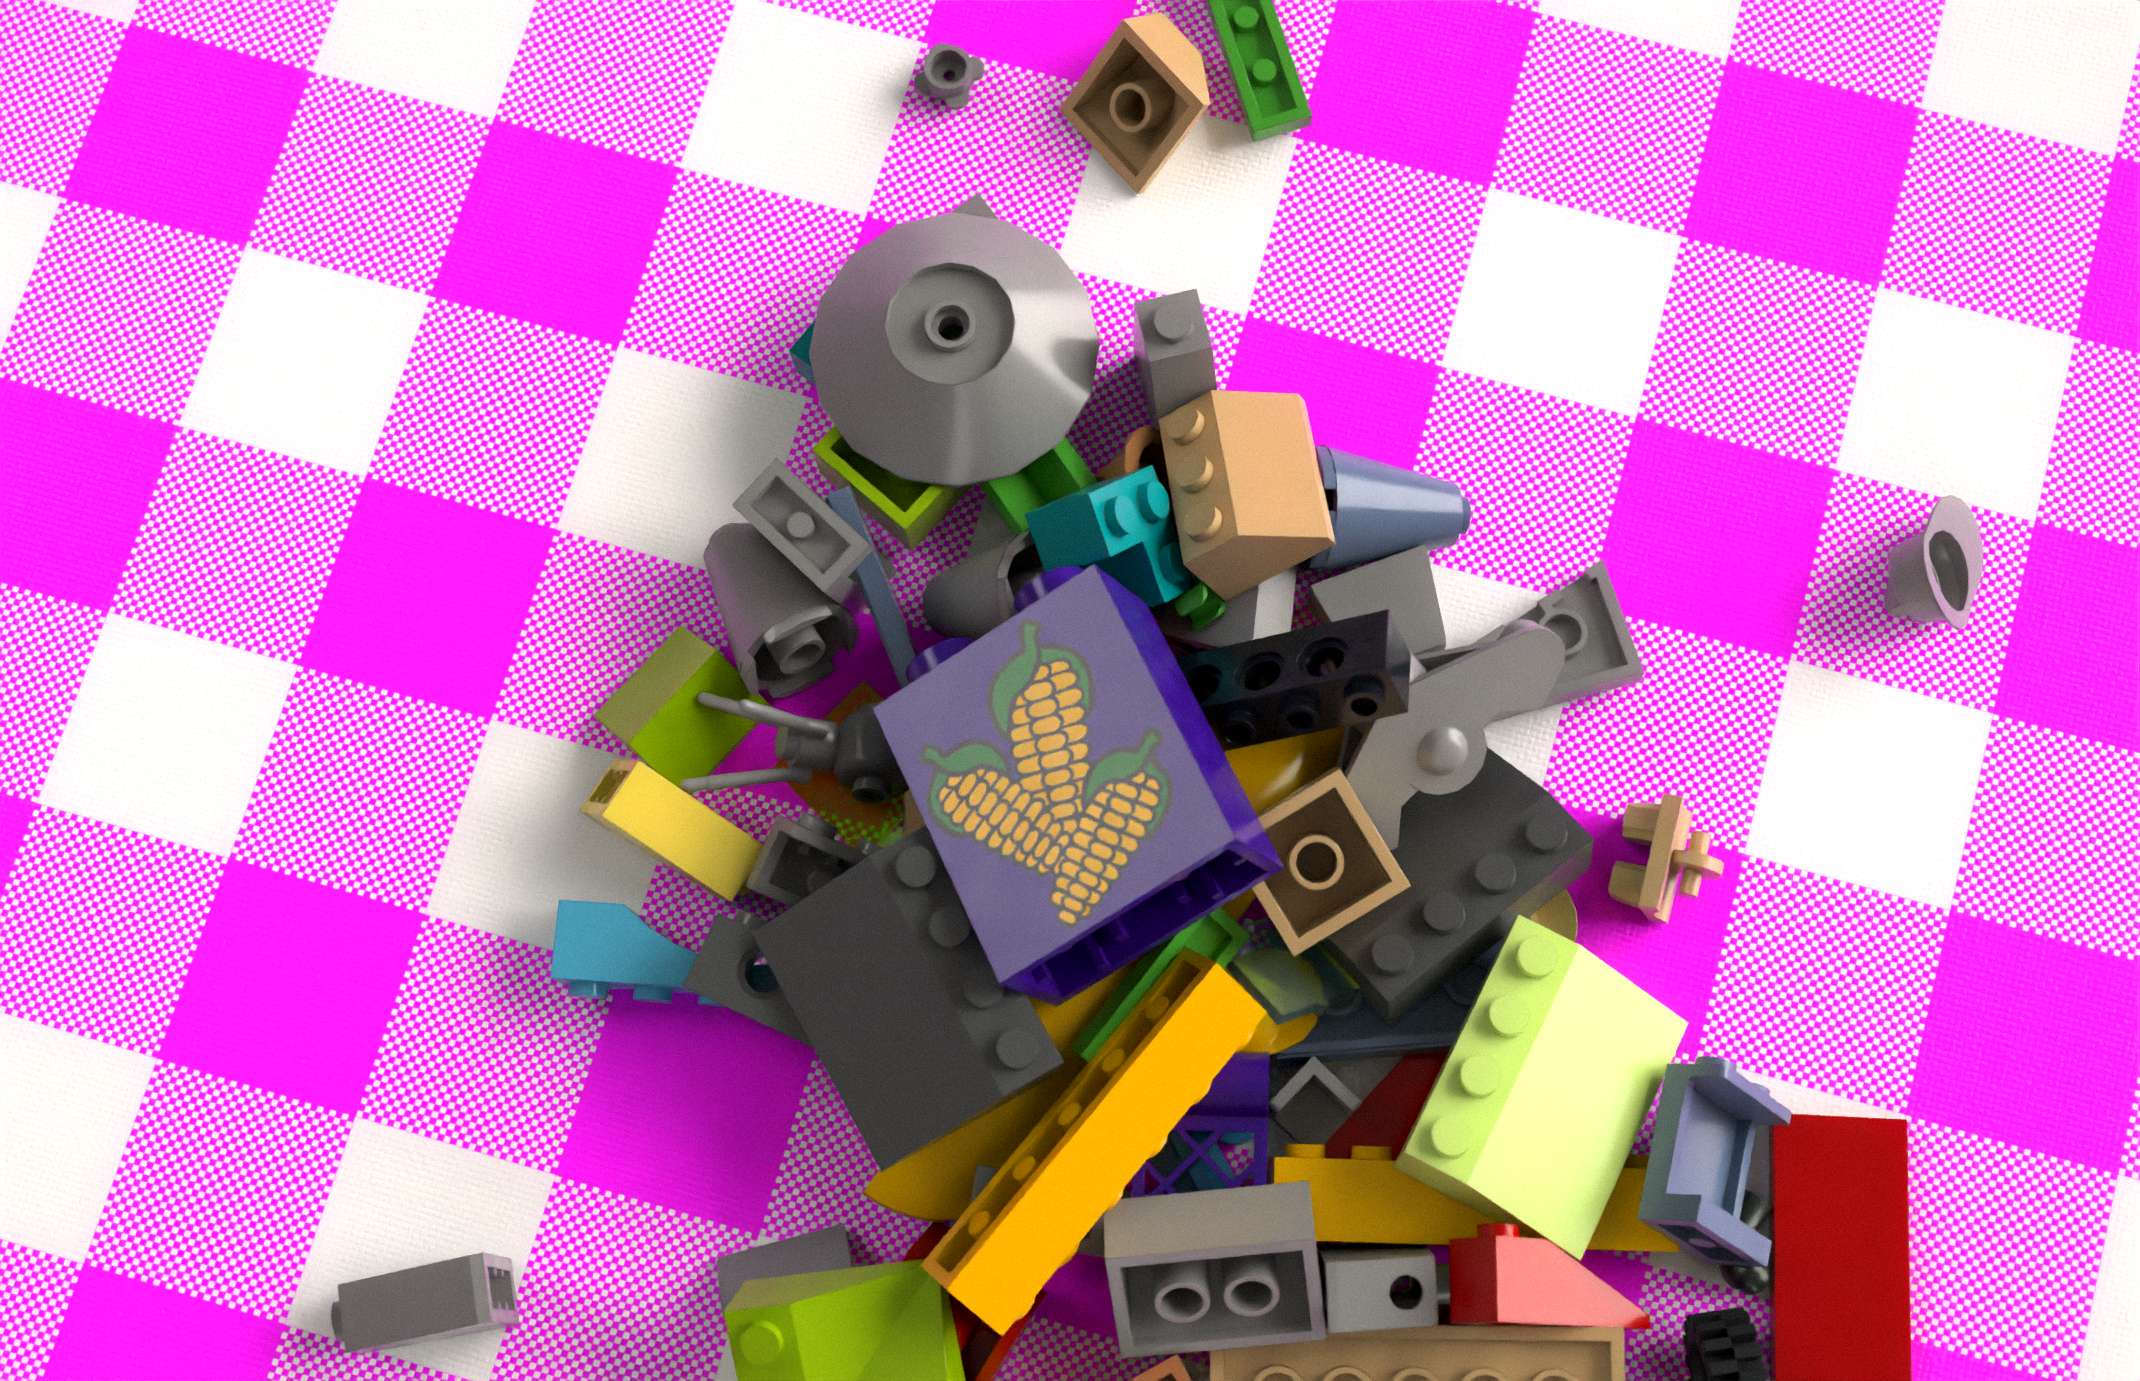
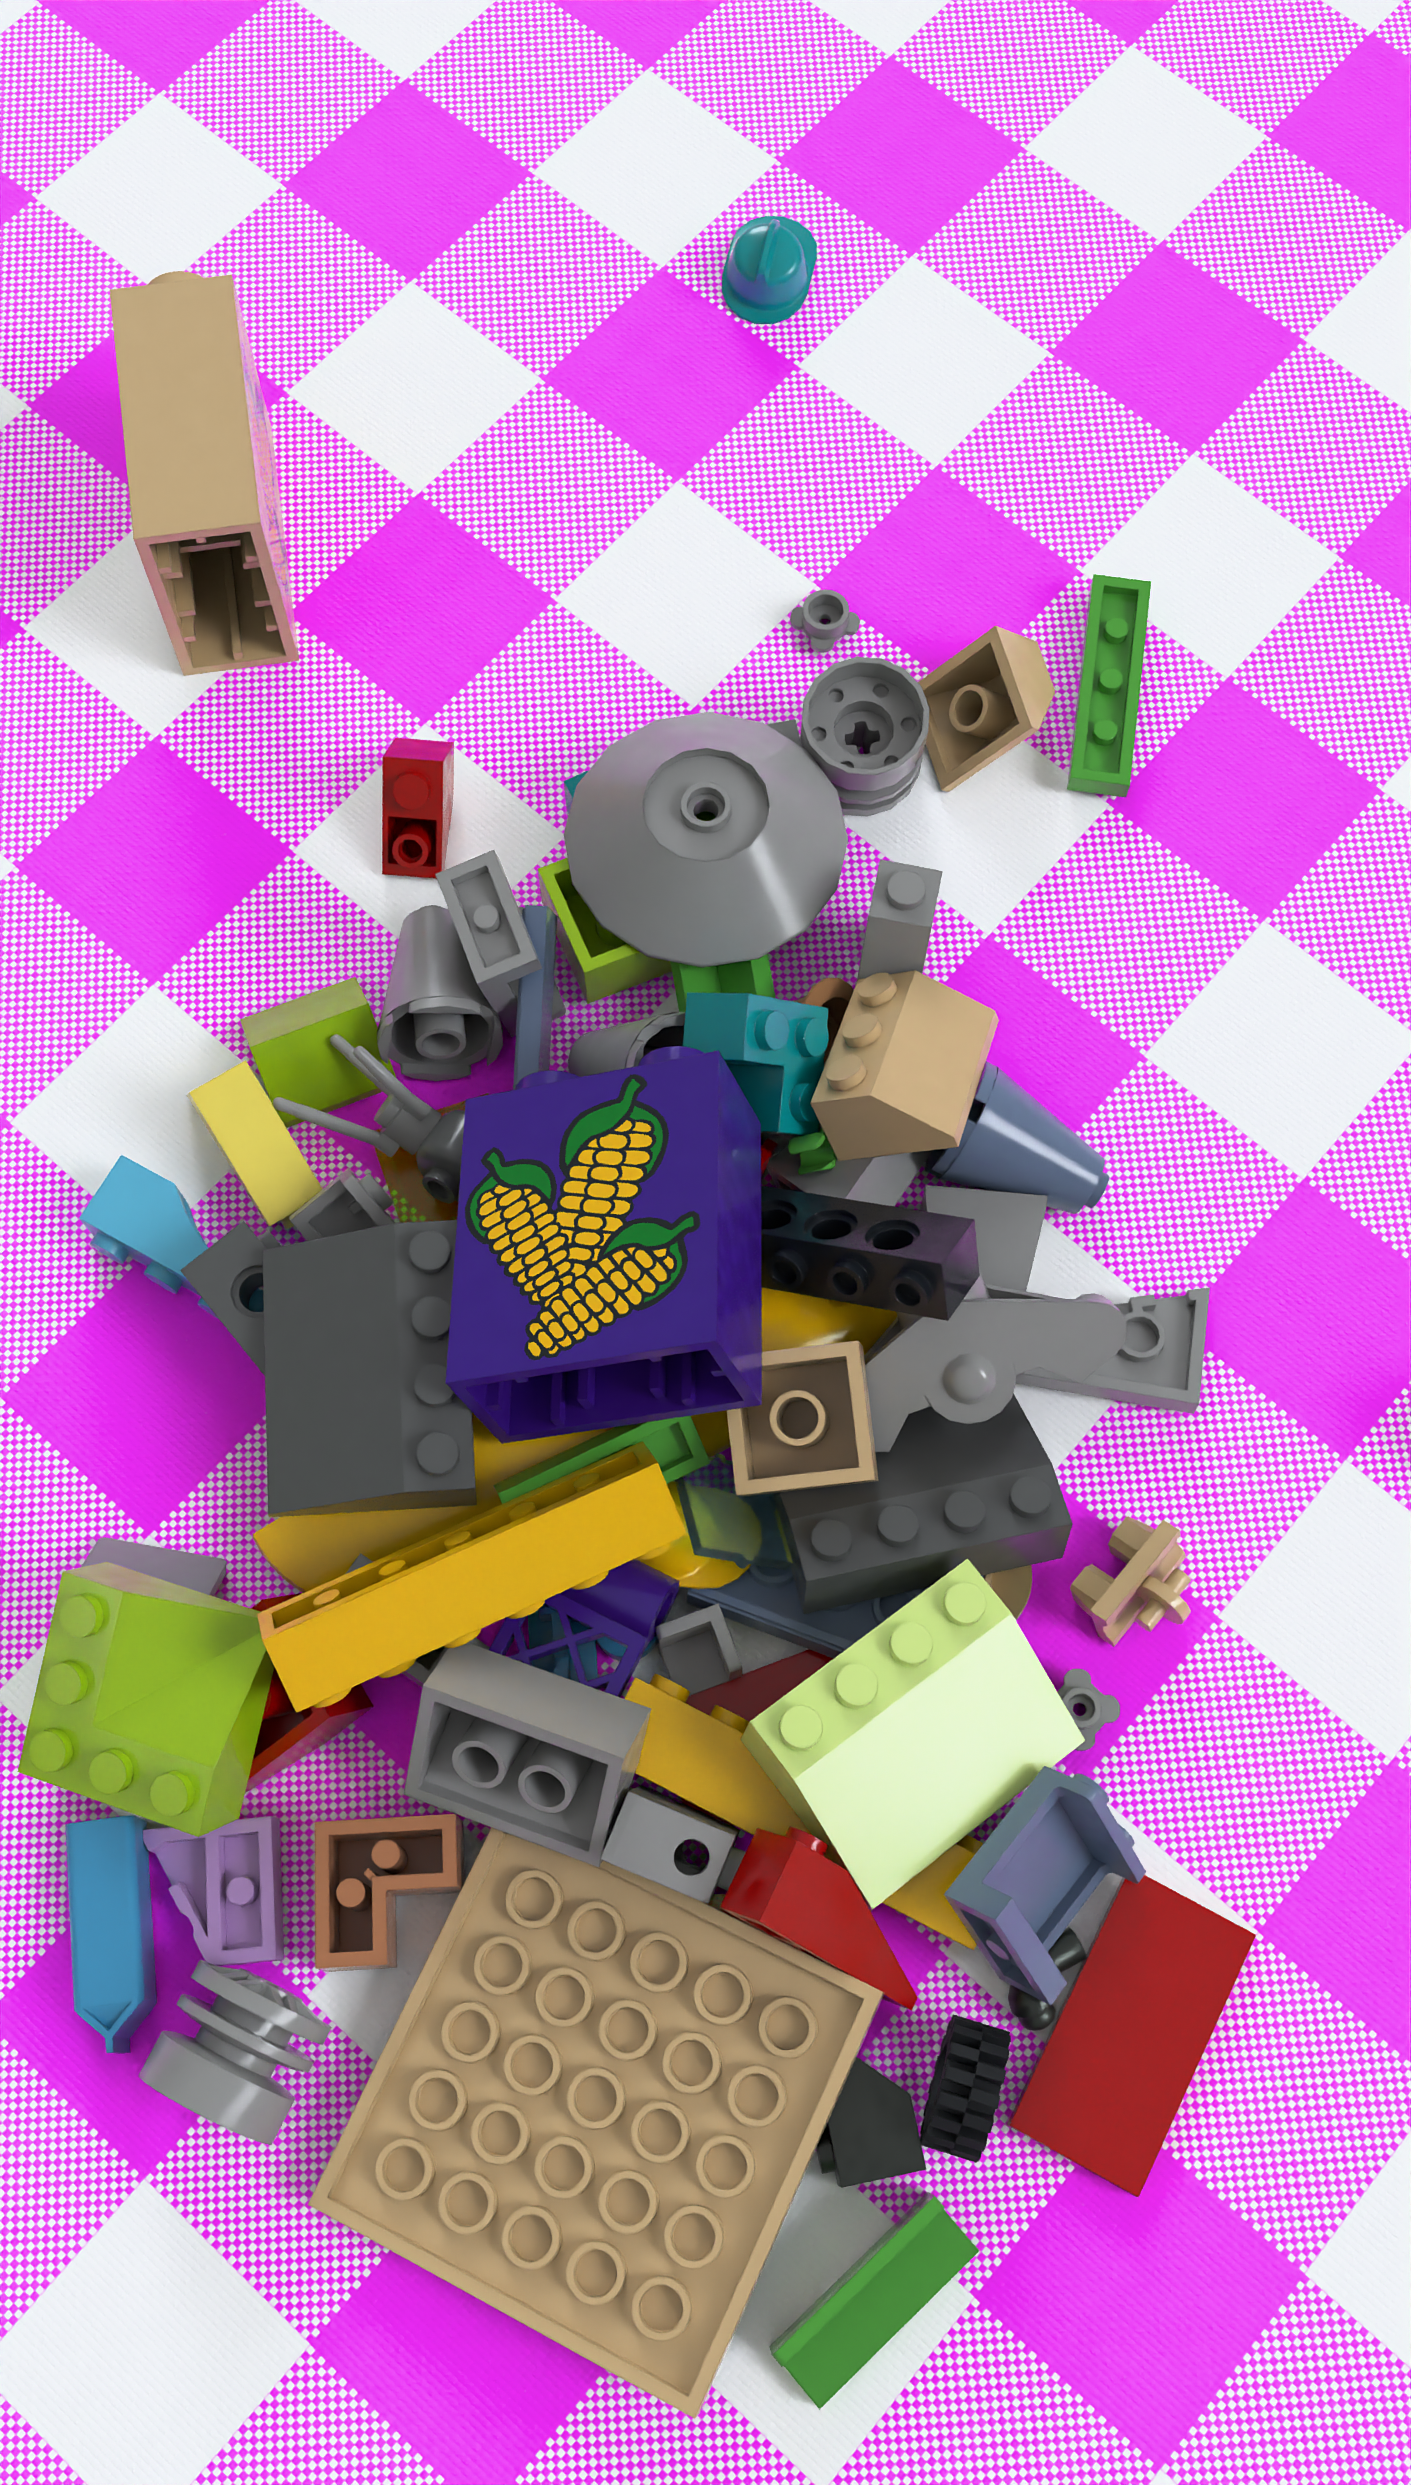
camera: 20 degrees right, 5 degrees down
(297, 200) = (203, 473): none -> tan brick
(658, 435) = (416, 806): none -> red slope
(1054, 149) = (873, 708): none -> light grey wheel
(1682, 986) = (1098, 1707): none -> light grey plate

